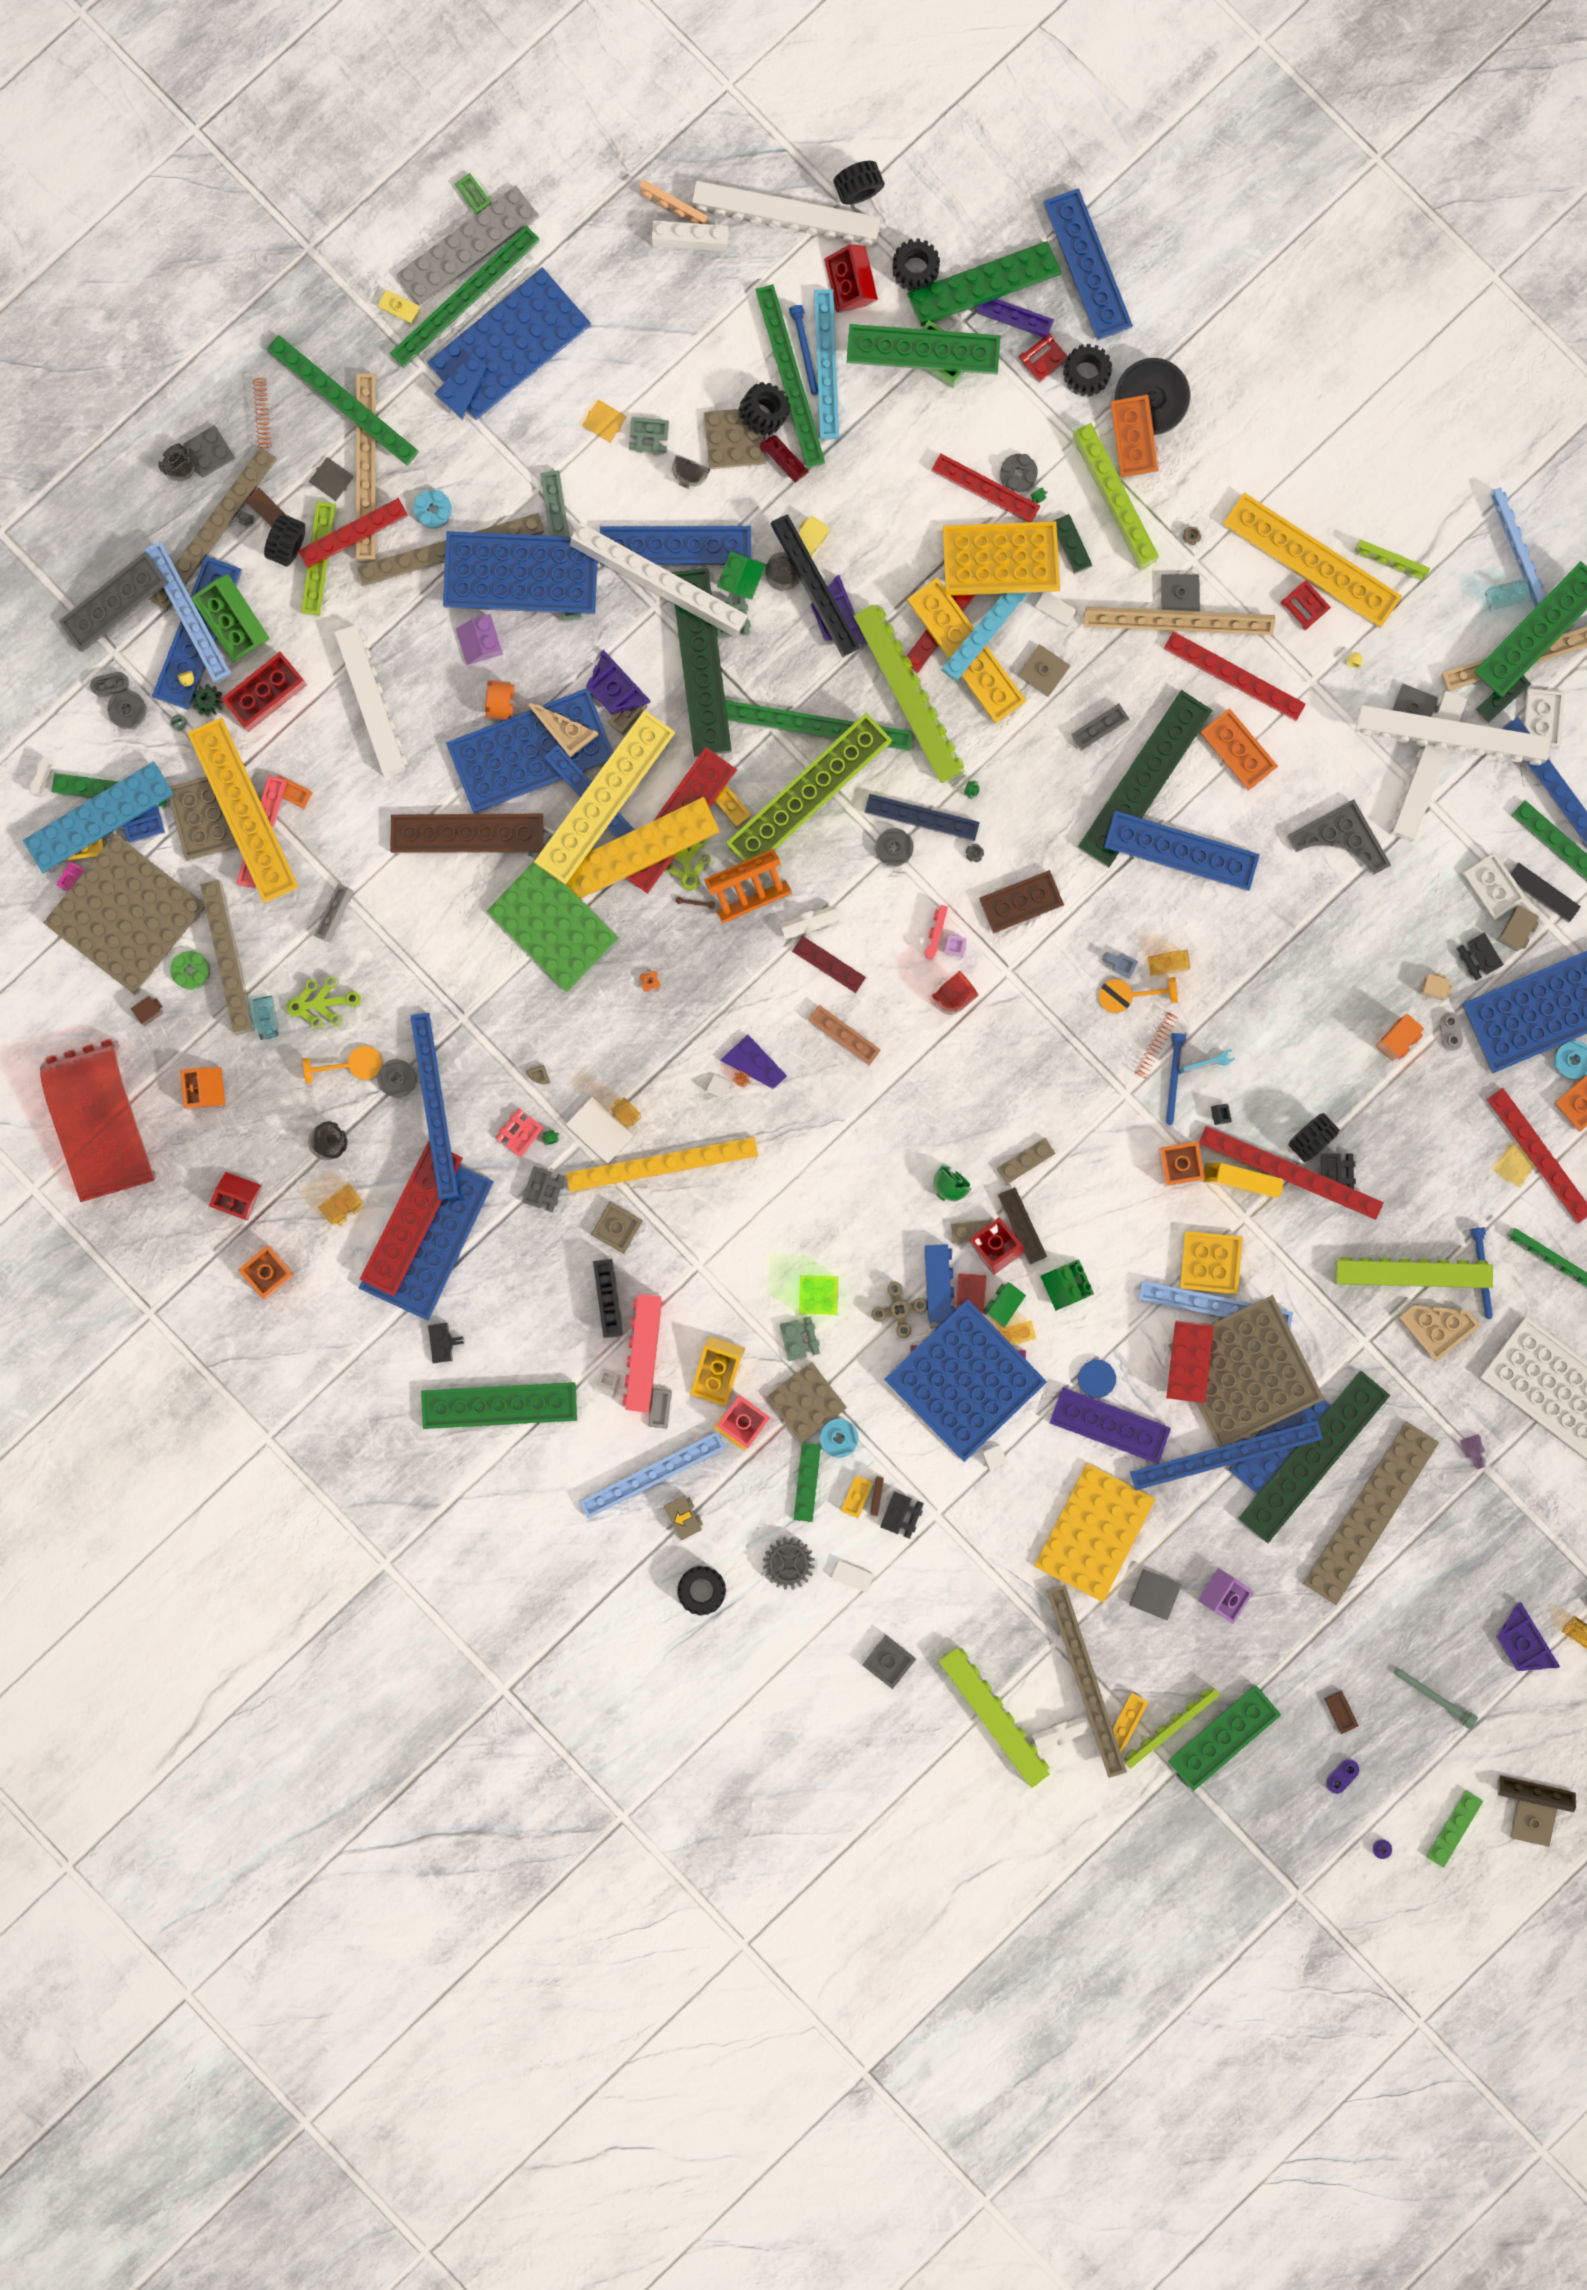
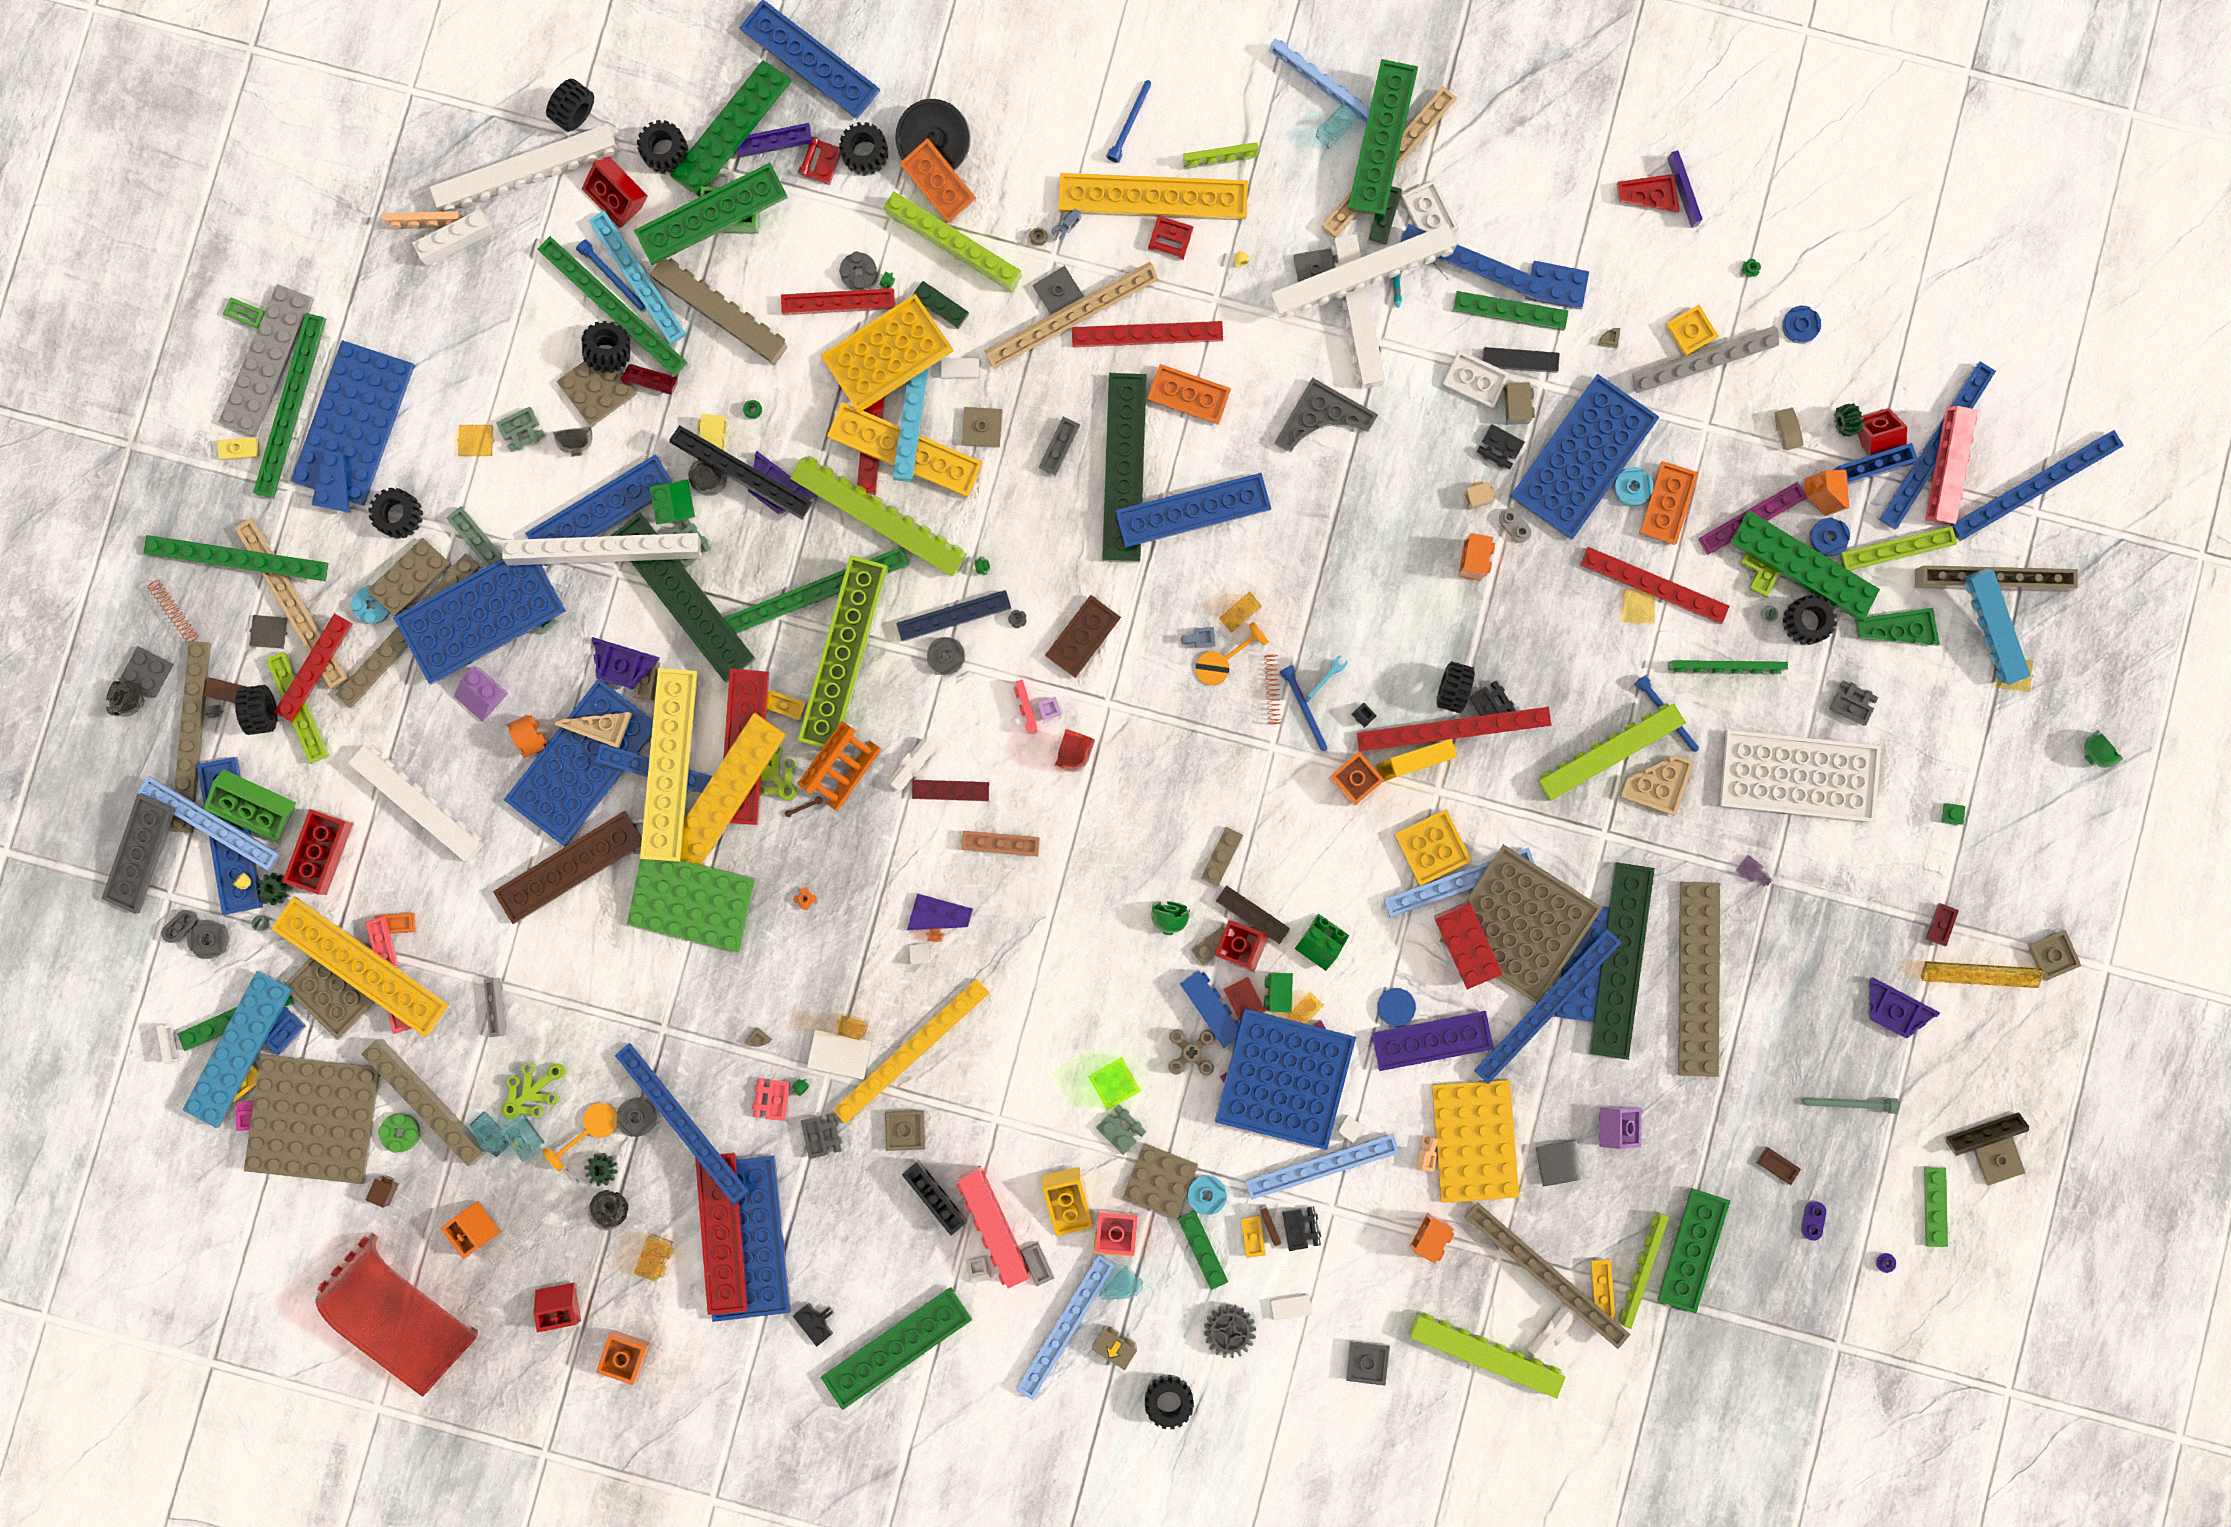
camera: 25 degrees left, 0 degrees up
(292, 1037) = (523, 1138): none -> clear light blue brick
(336, 1101) = (594, 1169): none -> dark green gear
(478, 505) = (409, 577): none -> dark tan plate
(494, 429) = (385, 502): none -> black tyre
(722, 1470) = (1123, 1285): none -> clear light blue slope
(856, 531) = (748, 405): none -> green plate
(879, 435) = (719, 311): none -> dark tan brick
(951, 1473) = (1322, 1166): none -> light blue plate
(1007, 1589) = (1432, 1238): none -> orange brick
(1046, 1520) = (1427, 1157): none -> light nougat plate
(1227, 538) = (1069, 222): none -> sand blue plate
(1302, 503) = (1115, 153): none -> blue piece
(1473, 768) = (1397, 291): none -> teal piece

